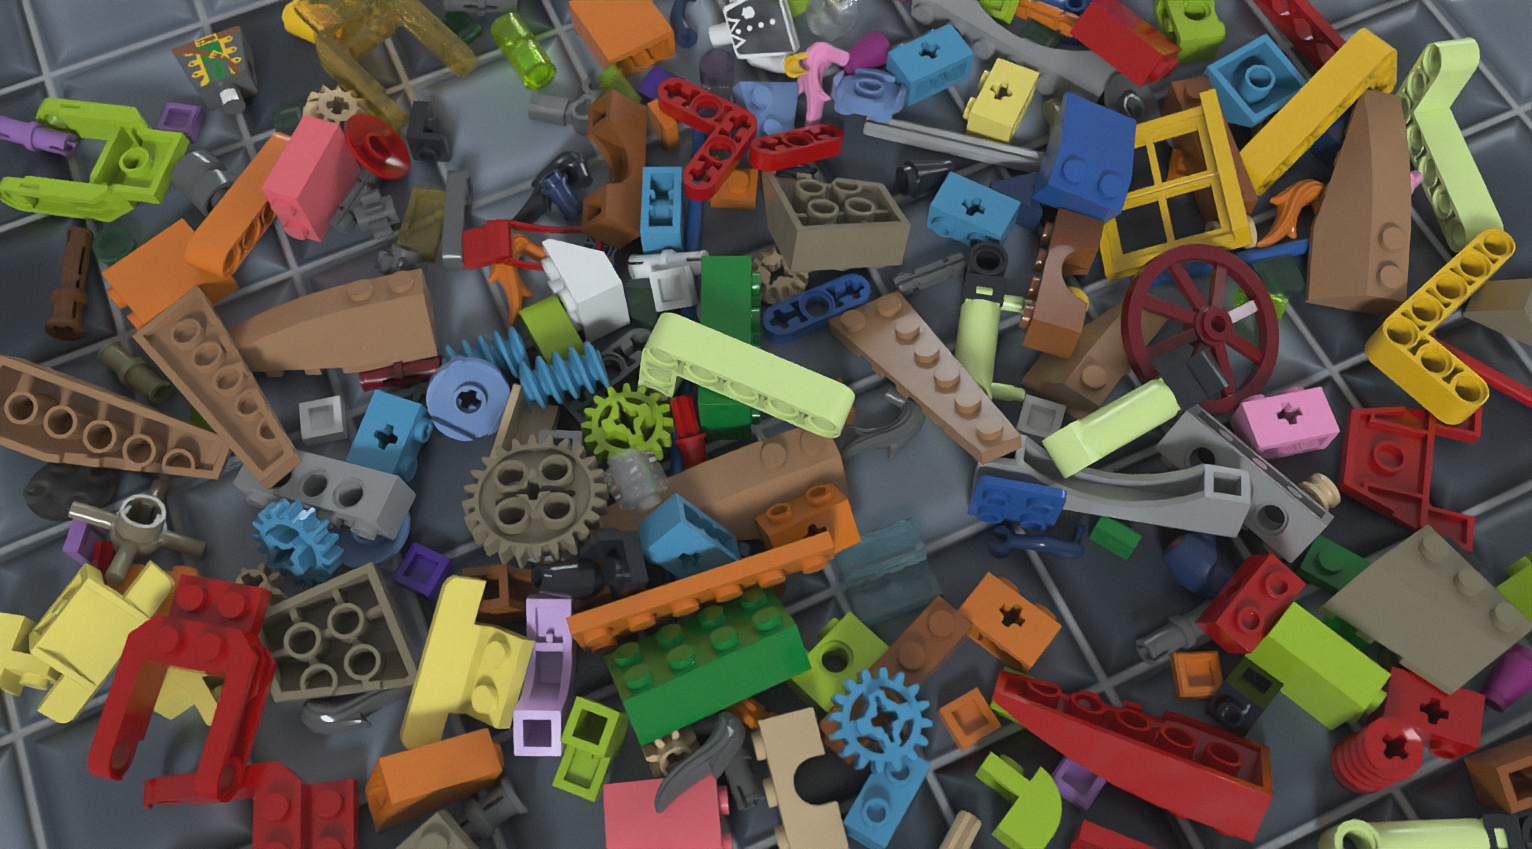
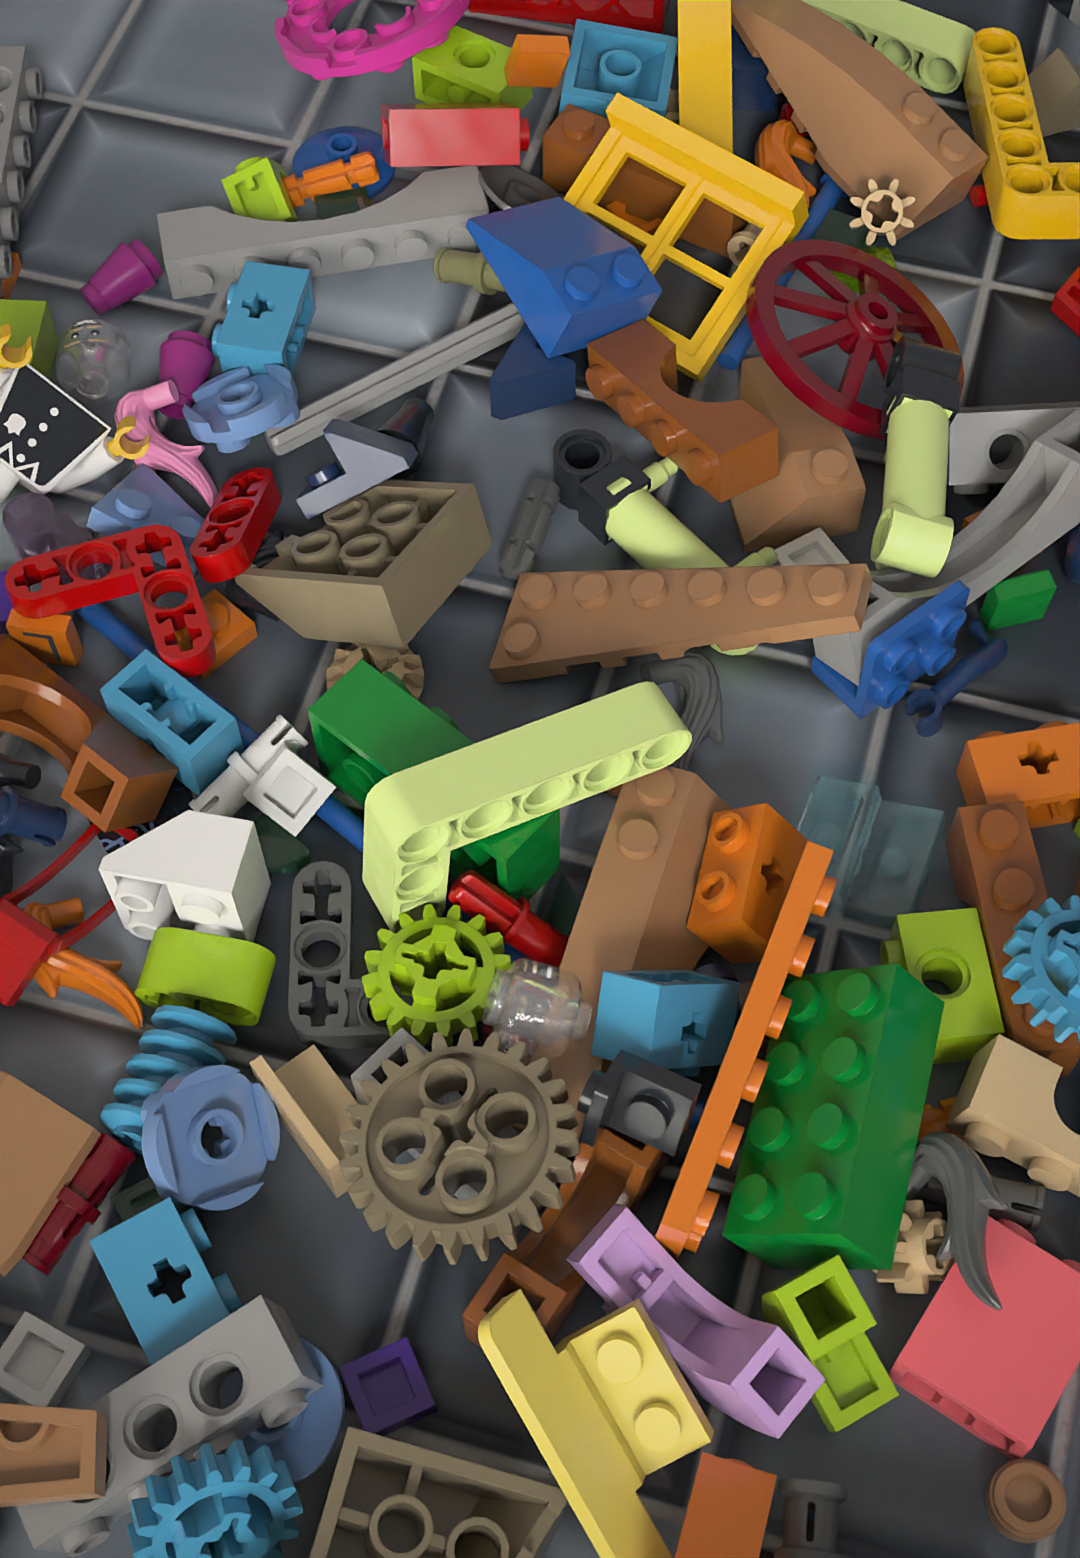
camera: 50 degrees left, 5 degrees down
(562, 376) = (289, 996): dark azure piece -> none
(568, 578) = (603, 1184): black cone -> none
(786, 309) = (455, 646): blue beam -> none
(879, 166) = (365, 461): none -> slope
(971, 212) = (501, 429): dark azure brick -> none
(1001, 101) = (390, 299): light yellow brick -> none
(1216, 38) = (537, 60): none -> orange tile
(1285, 423) = (1019, 355): bright pink brick -> none
(1294, 274) = (876, 198): none -> tan gear

